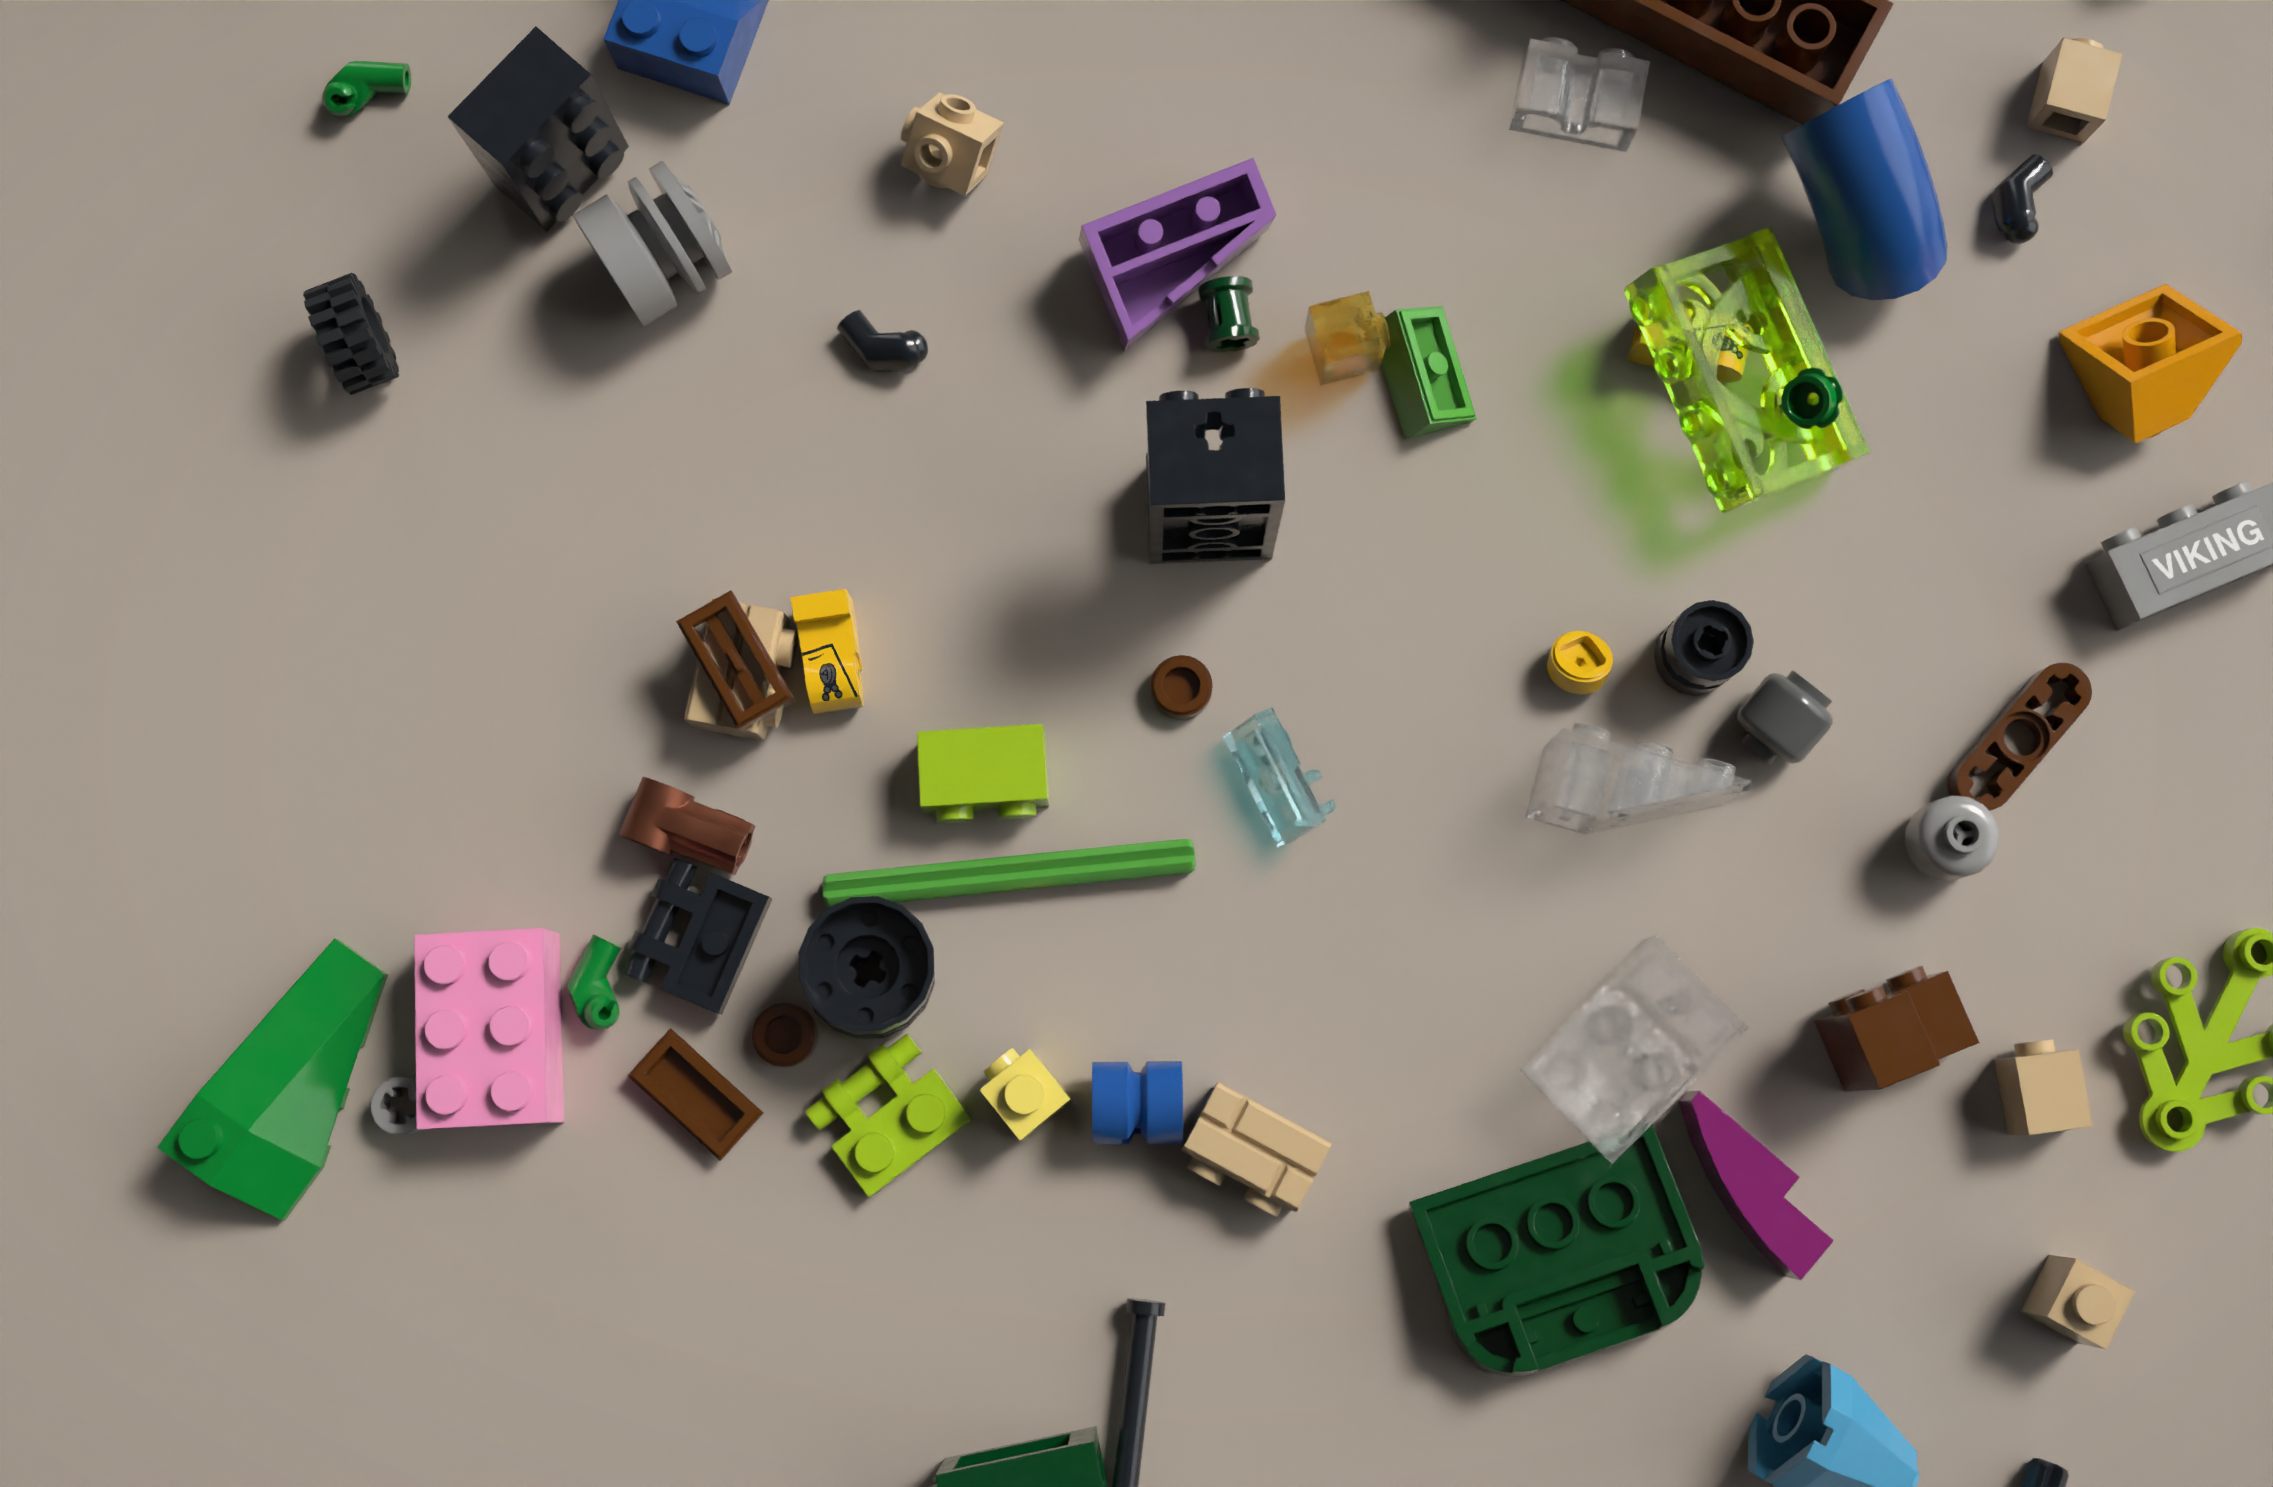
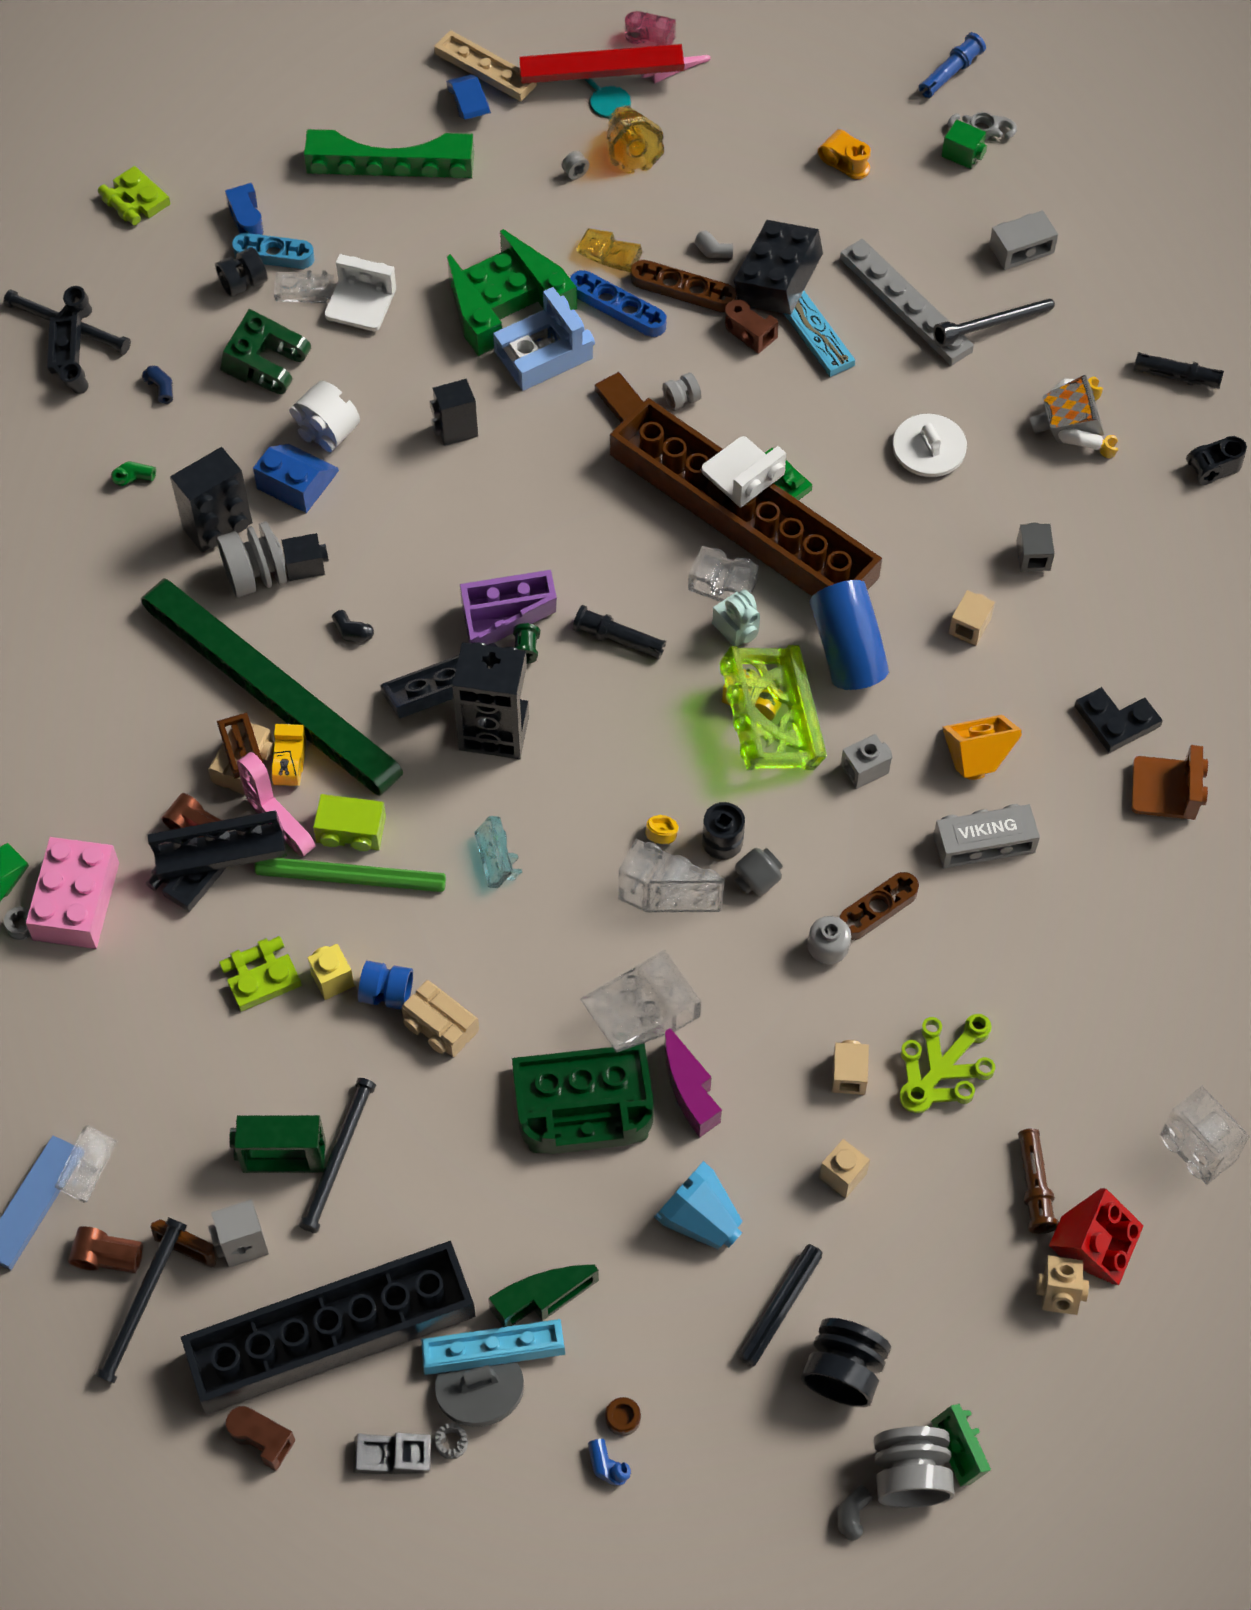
camera: 10 degrees right, 20 degrees down
(351, 333) = (95, 573): black tyre -> none
(590, 987) = (127, 885): green arm -> none
(695, 1094) = (166, 944): reddish brown tile -> none
(748, 889) = (218, 846): none -> black fence
(752, 208) = (304, 556): none -> black brick
(757, 505) = (272, 686): none -> dark green beam
(784, 1035) = (218, 927): reddish brown tile -> none
(807, 759) = (260, 796): none -> bright pink beam
(858, 932) = (267, 895): black wheel -> none
(950, 142) = (408, 543): tan brick -> none
(1089, 431) = (422, 687): none -> black tile
(1181, 687) = (459, 806): reddish brown tile -> none
(1346, 337) = (579, 660): clear yellow brick -> none
(1374, 250) = (605, 628): none -> black pin
(1425, 372) = (617, 687): bright green slope -> none
(1630, 181) = (737, 618): none -> light aqua brick
(1797, 404) = (794, 721): green plate -> none
(1897, 1033) = (777, 1023): reddish brown brick -> none
(1938, 440) = (866, 761): none -> light grey brick
(2014, 199) = (932, 661): black arm -> none

